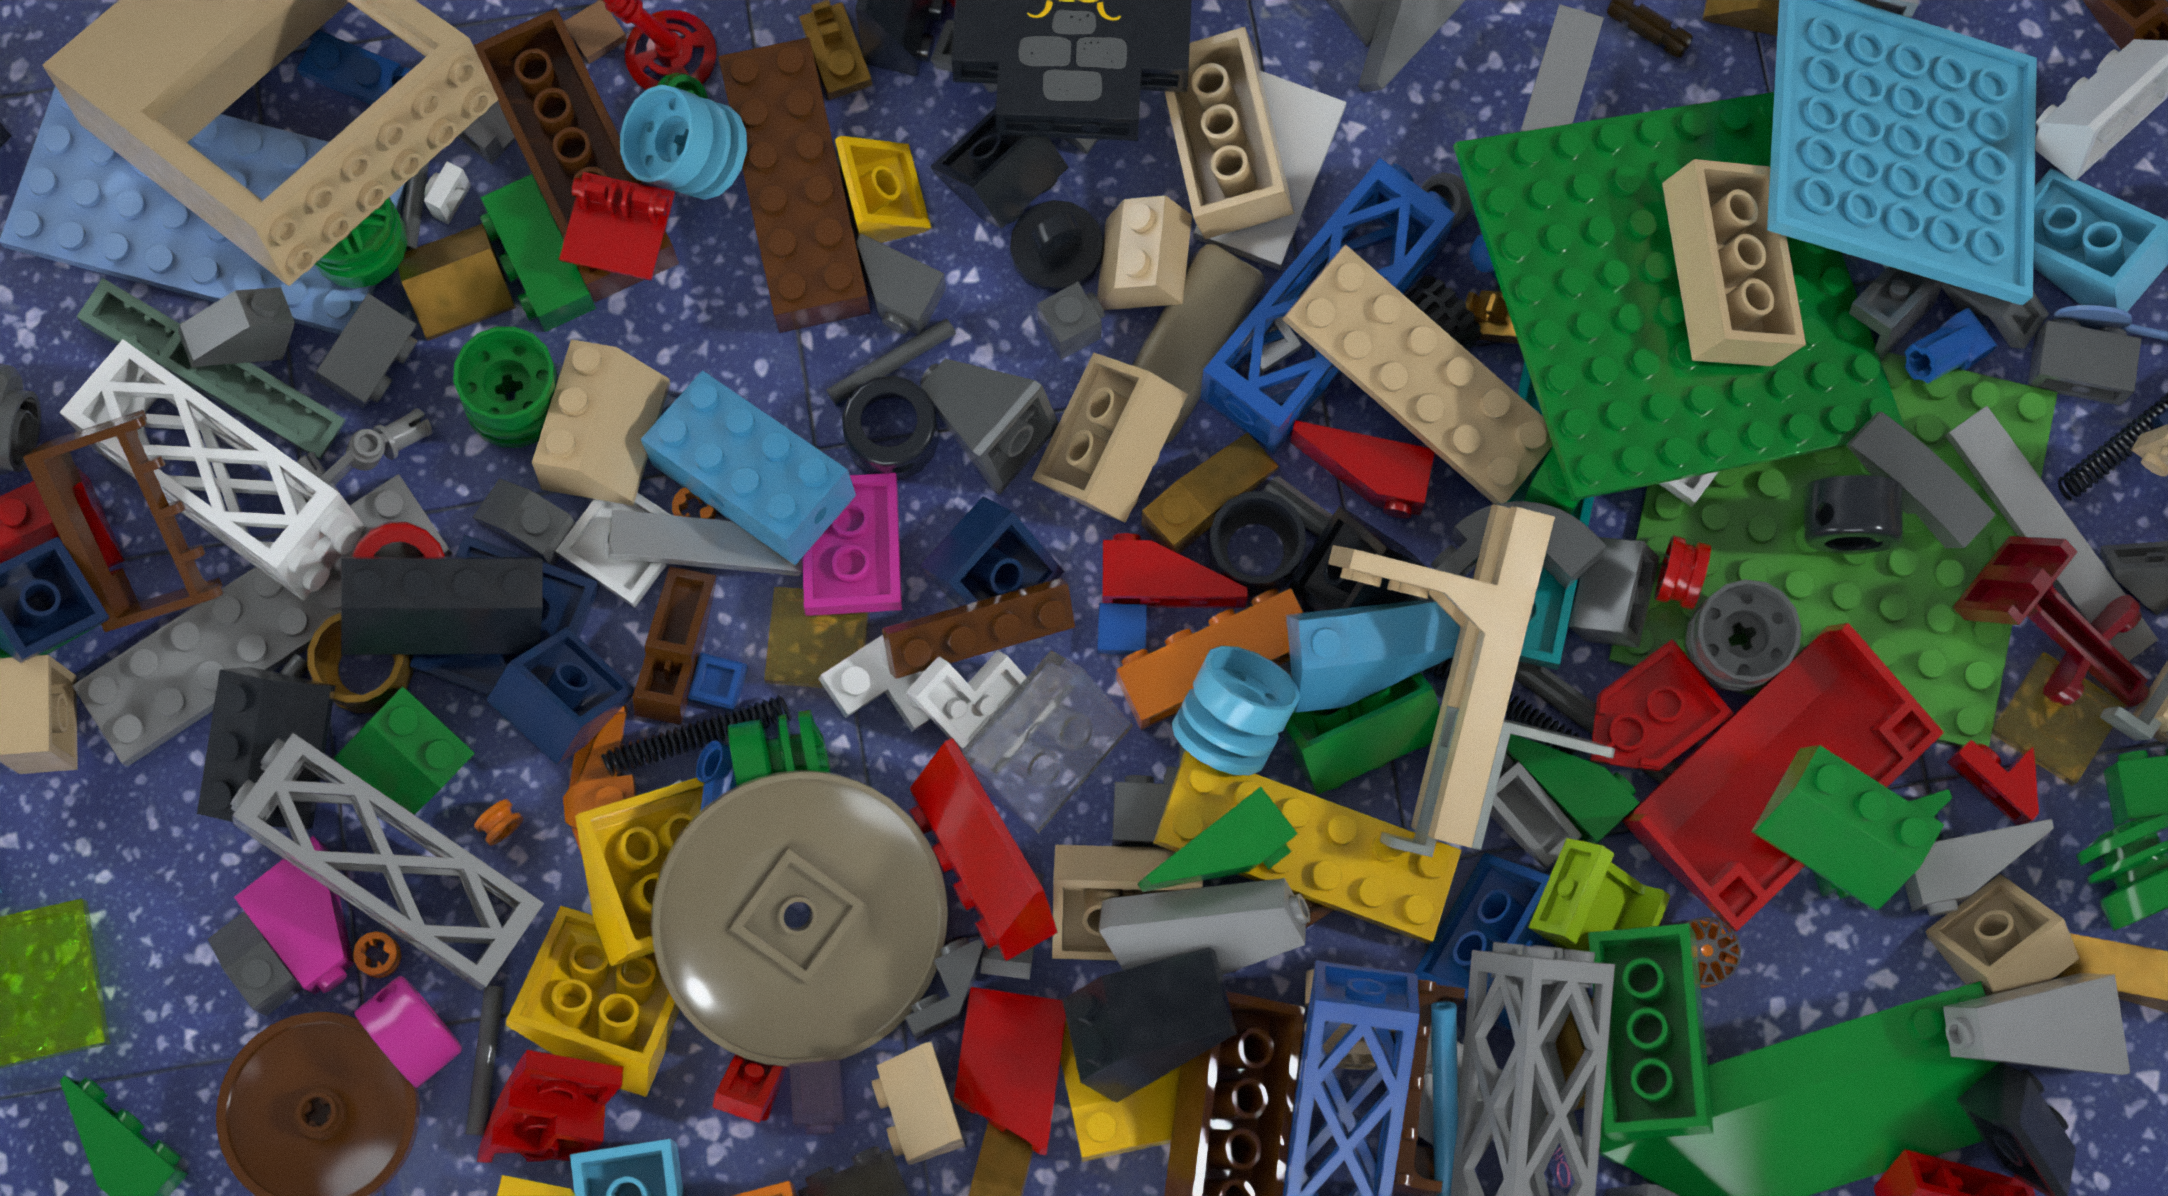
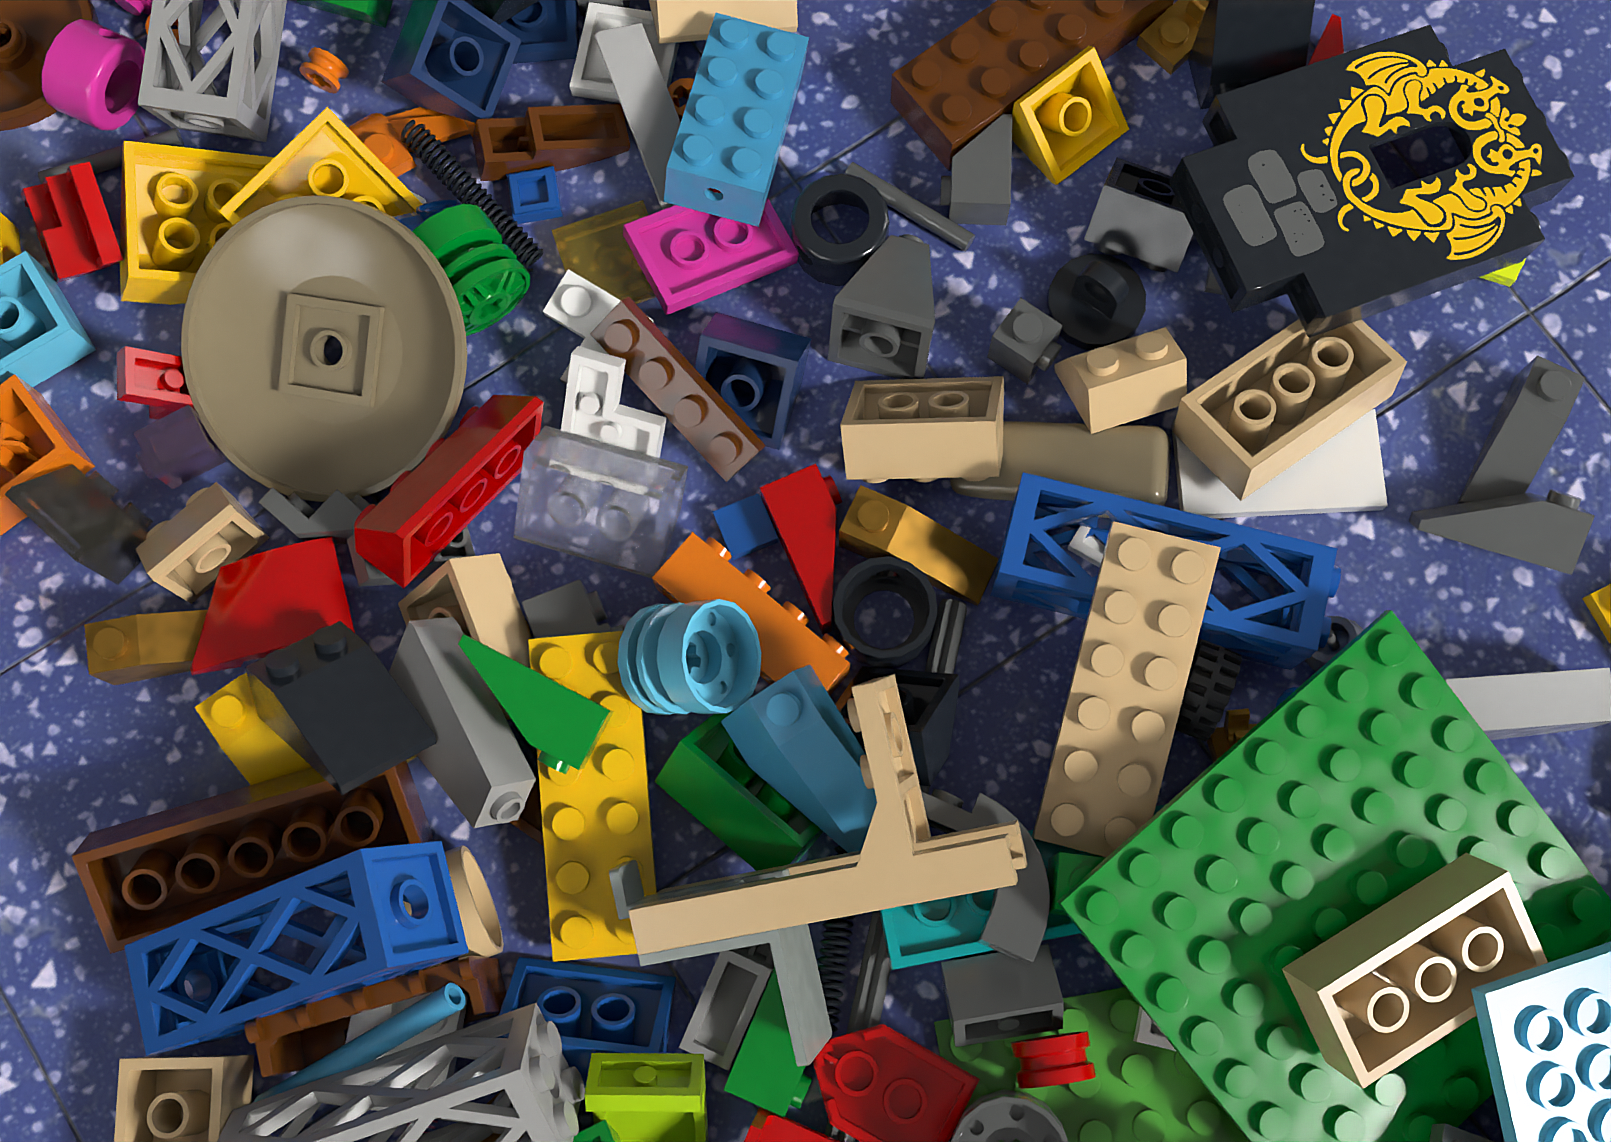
camera: 70 degrees right, 0 degrees up
(1376, 468) = (1019, 702): red slope -> none

